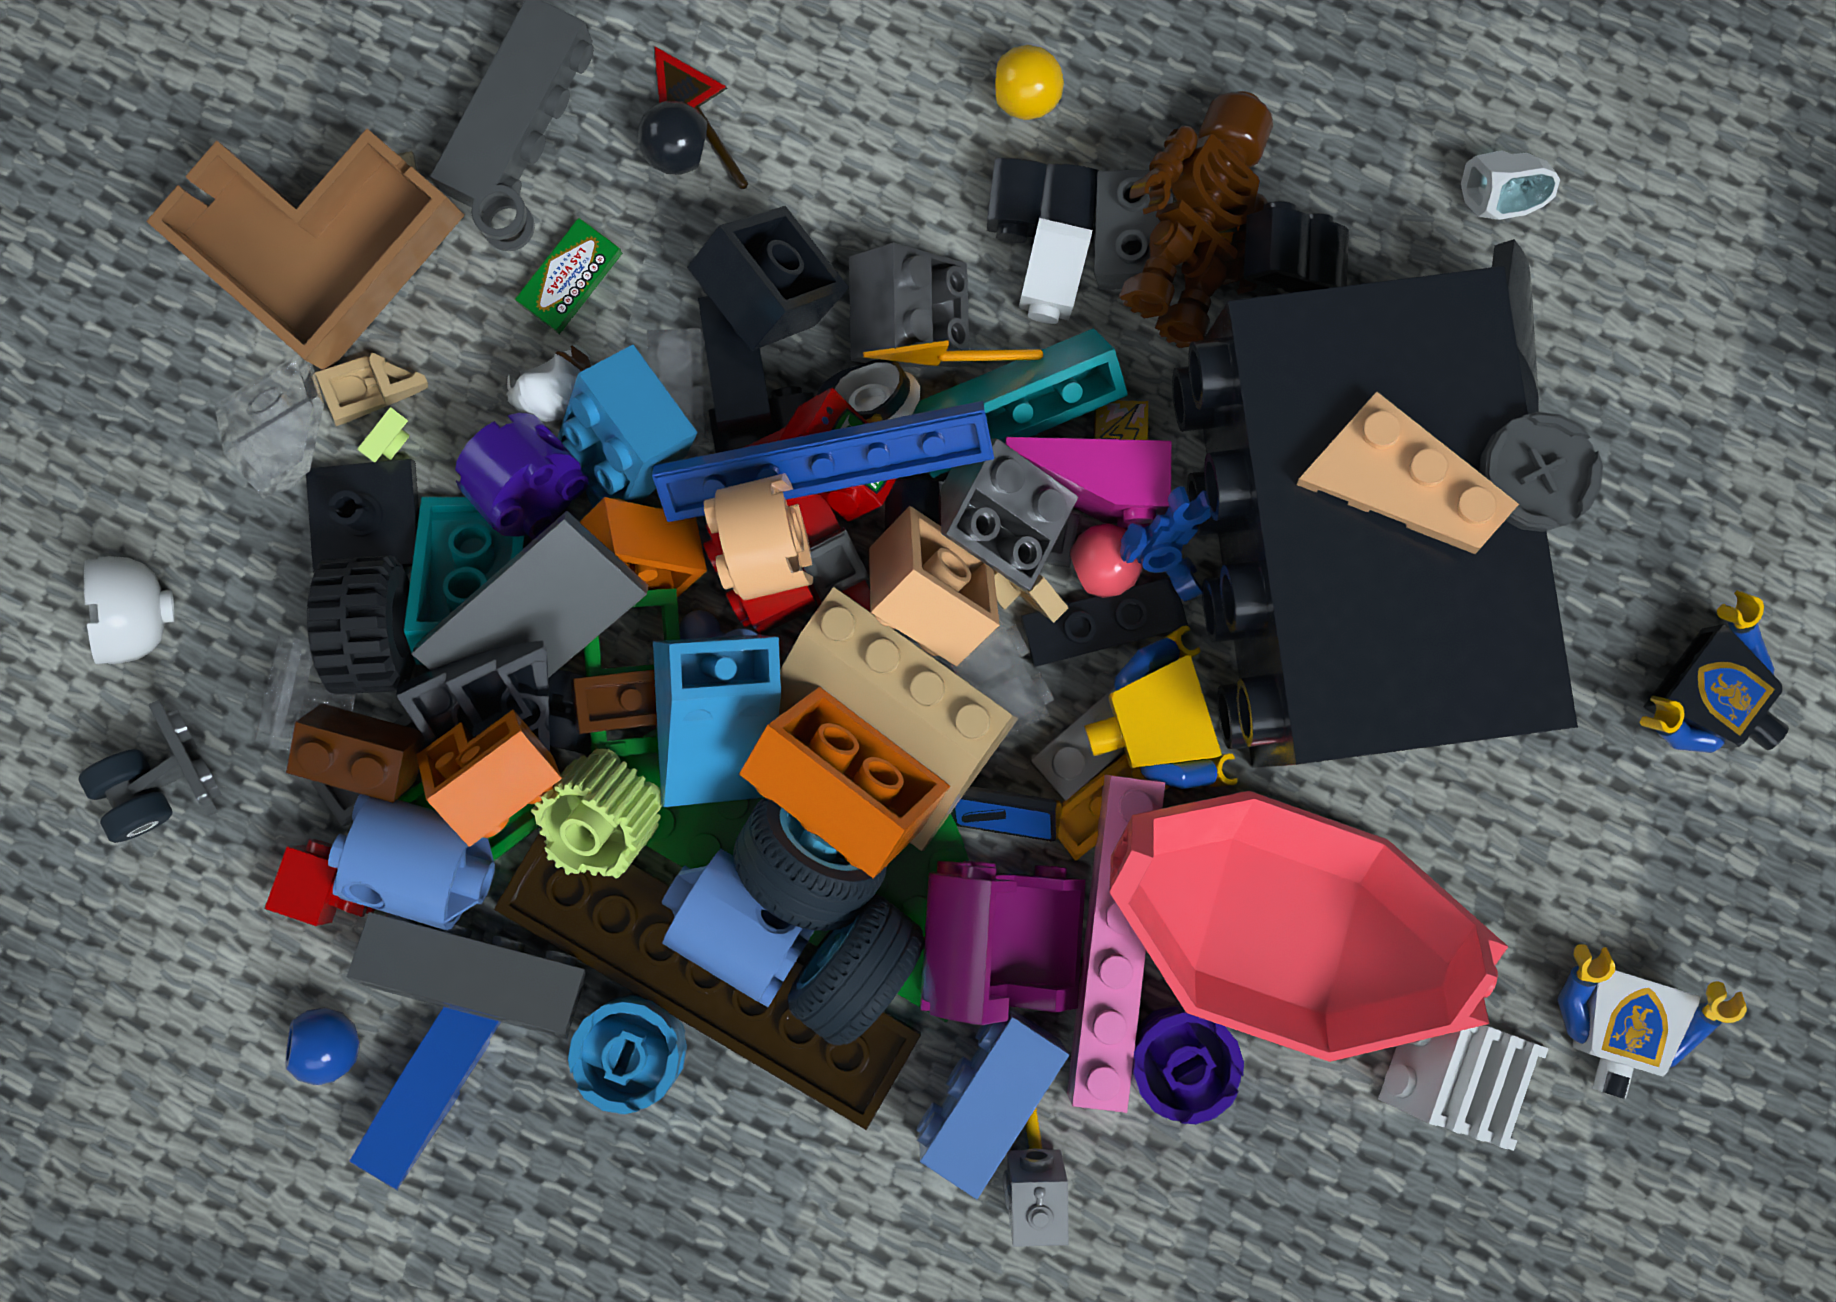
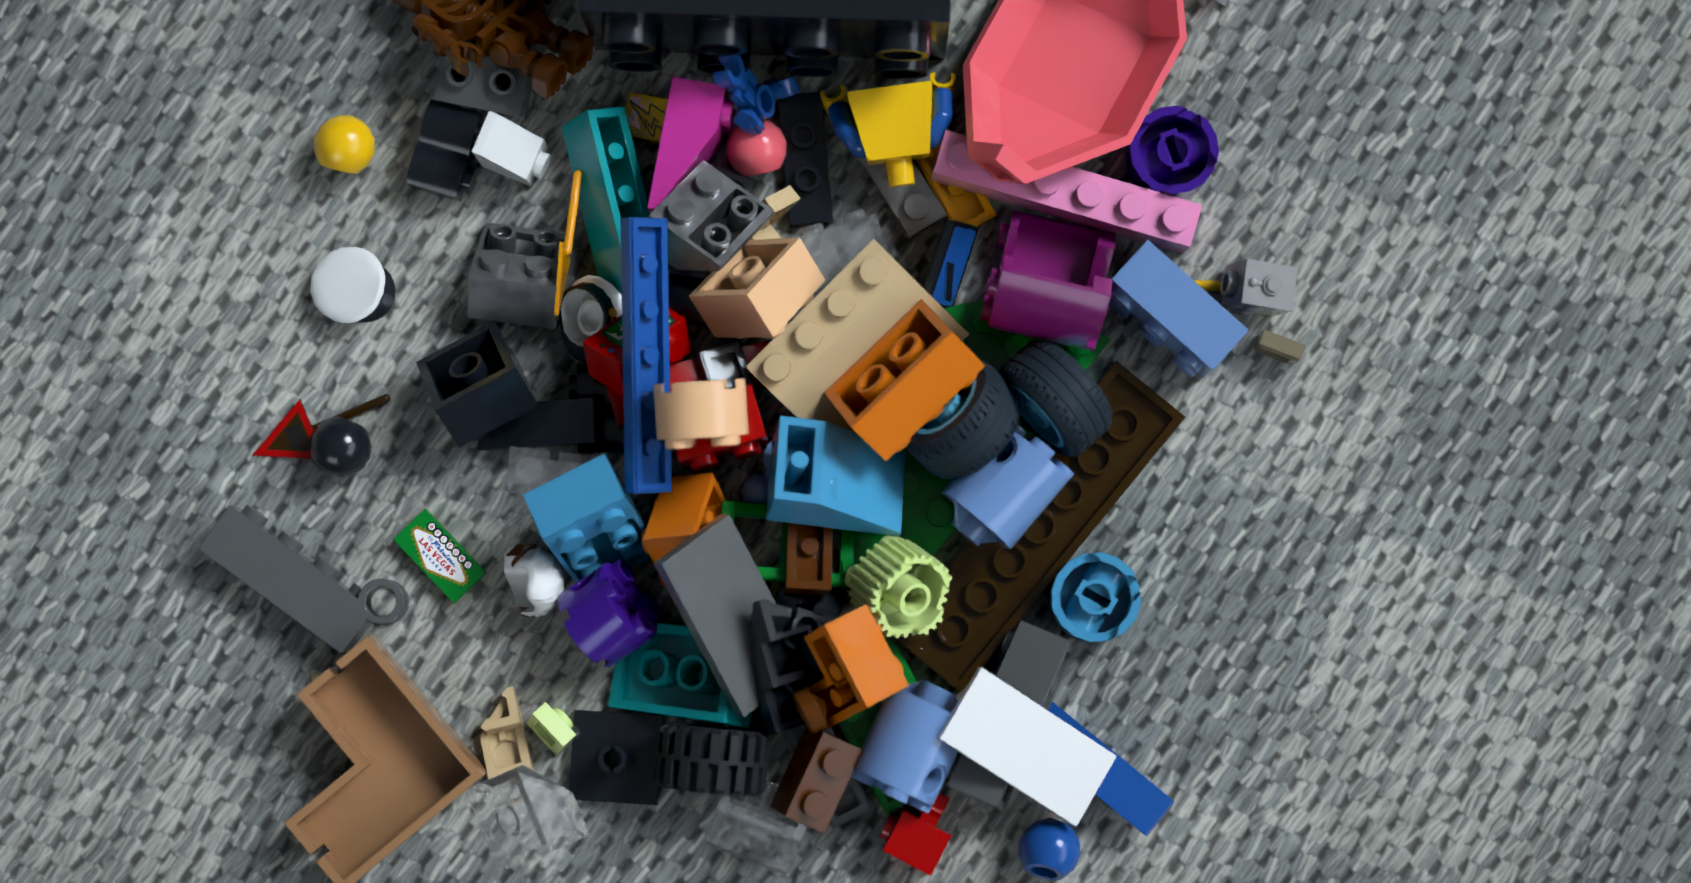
camera: 75 degrees left, 0 degrees up
(425, 1001) = (1027, 746): none -> white piece
(429, 733) = (811, 709): none -> reddish brown tile
(864, 122) = (352, 286): none -> white piece
(969, 1232) = (1279, 347): none -> dark tan tile

